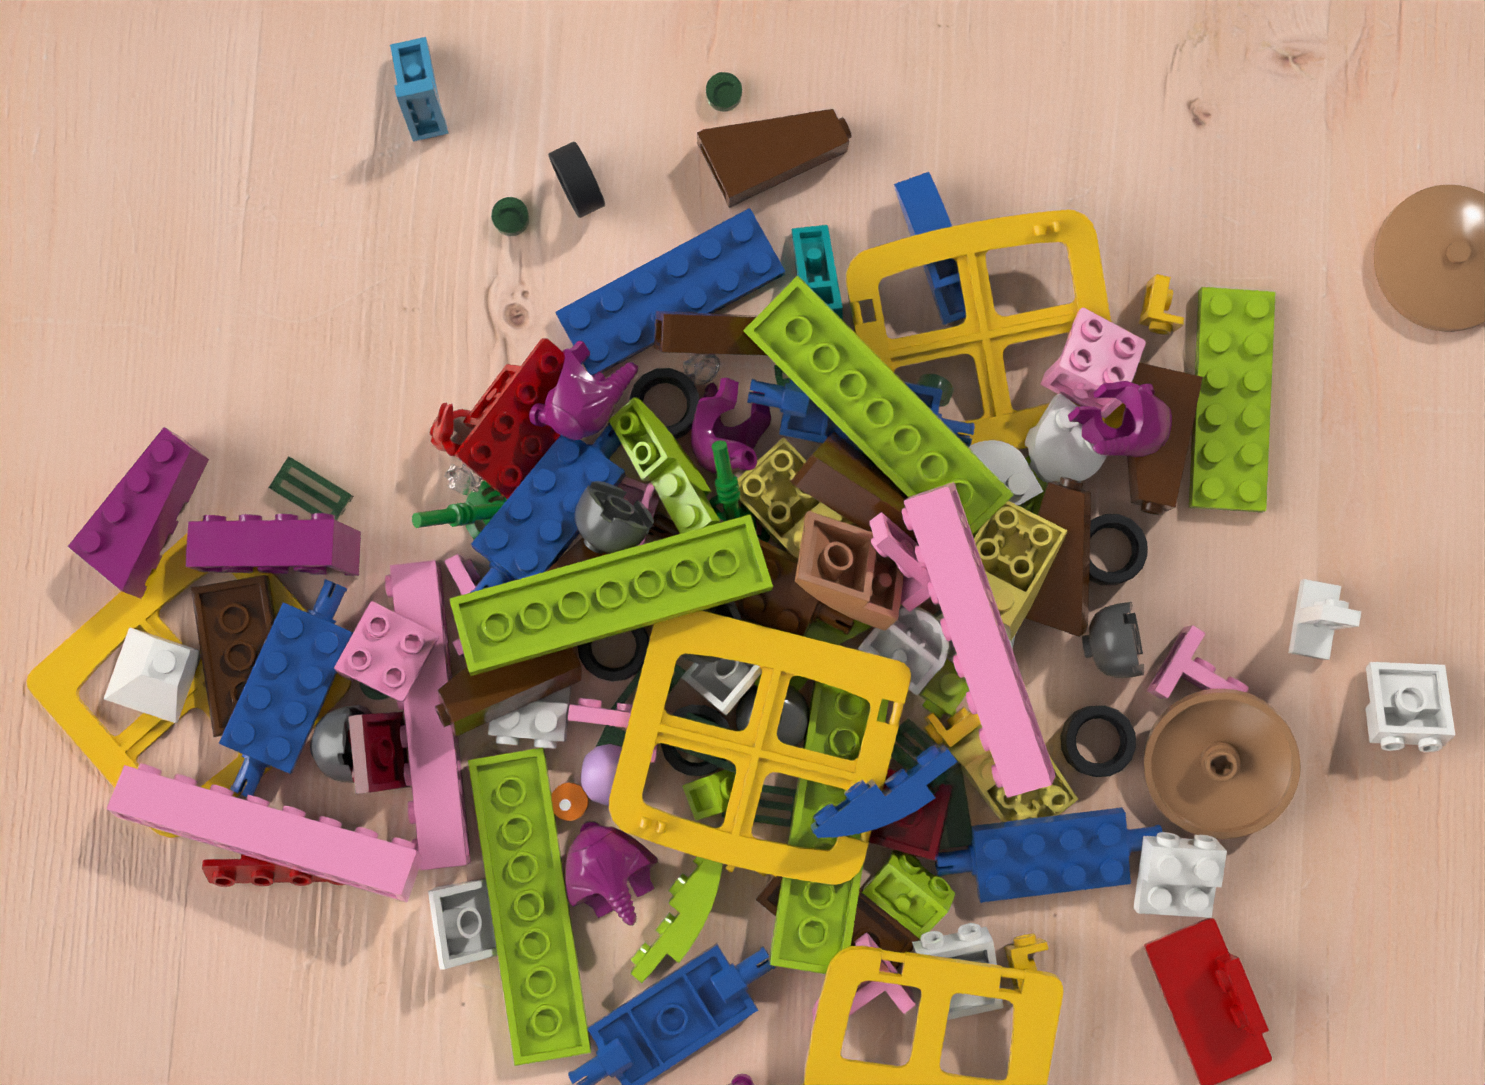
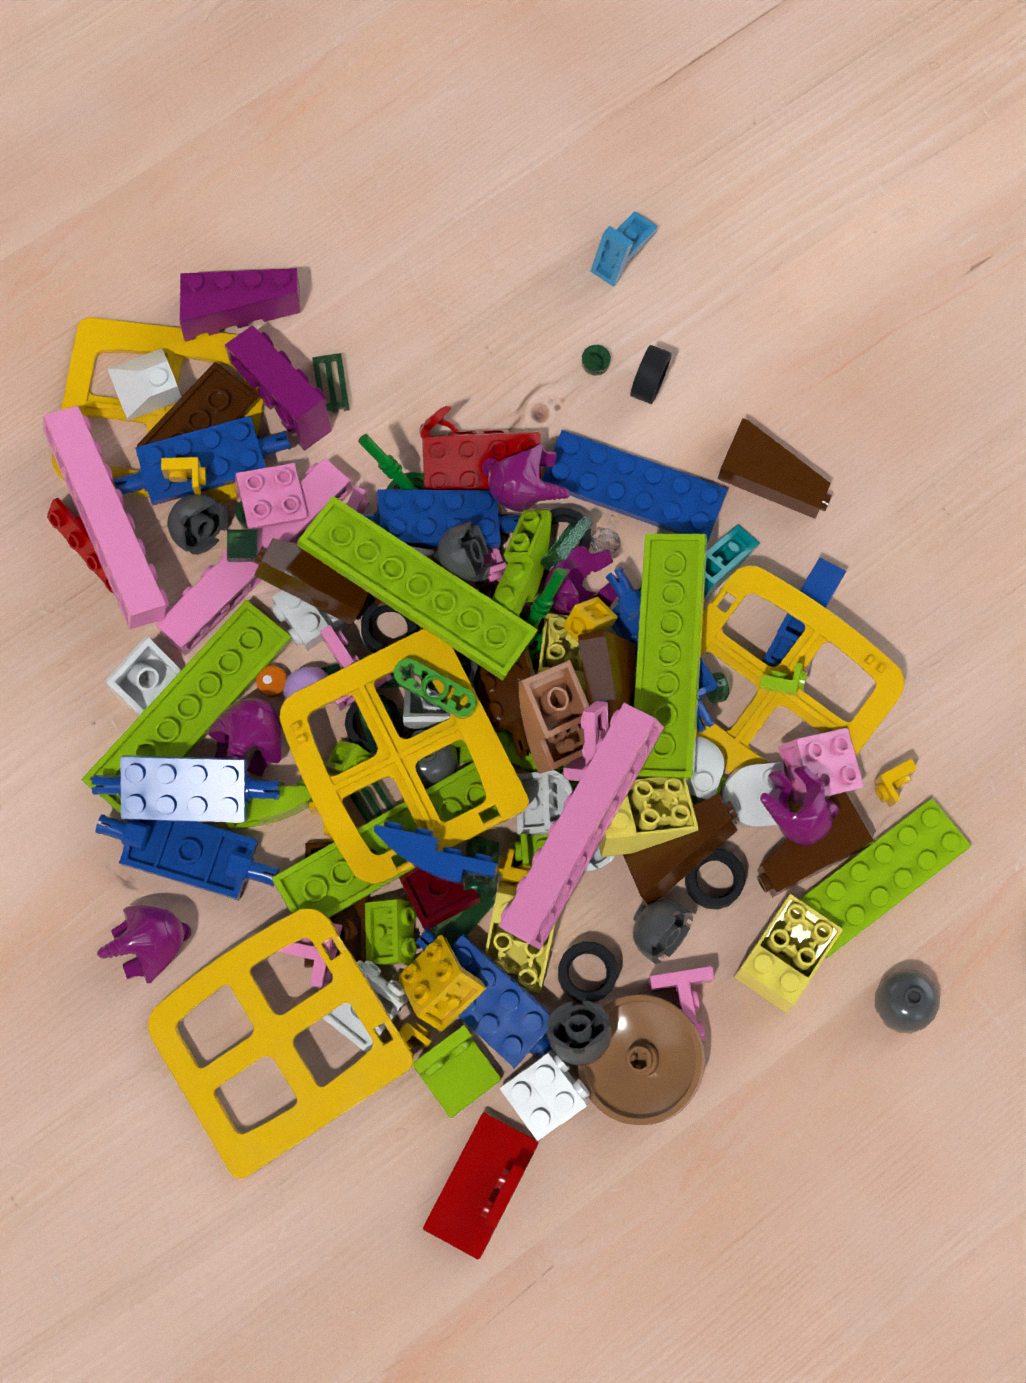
camera: 55 degrees right, 10 degrees down
(285, 721) = (182, 468): none -> yellow bracket
(377, 752) = (204, 540): dark red plate -> none
(413, 721) = (242, 545): none -> clear green tile
(462, 479) = (413, 459): clear plate -> none
(614, 978) = (185, 788): none -> plate
(680, 409) = (566, 542): none -> clear green tile
(704, 333) = (622, 516): reddish brown slope -> none
(723, 91) = (783, 417): clear green tile -> none
(755, 659) = (411, 684): none -> bright green beam
(775, 454) = (589, 617): none -> yellow bracket
(990, 332) = (779, 683): none -> lime bracket
(1000, 892) = (439, 985): none -> yellow bracket
(1089, 939) = (456, 1072): none -> lime bracket
(1156, 801) = (579, 1032): none -> dark grey cylinder
(1236, 545) = (788, 953): none -> light yellow slope
(1316, 618) = (788, 1048): white bracket -> none
(1362, 475) = (907, 1001): none -> dark grey cylinder
(1409, 706) = (785, 1155): white plate -> none

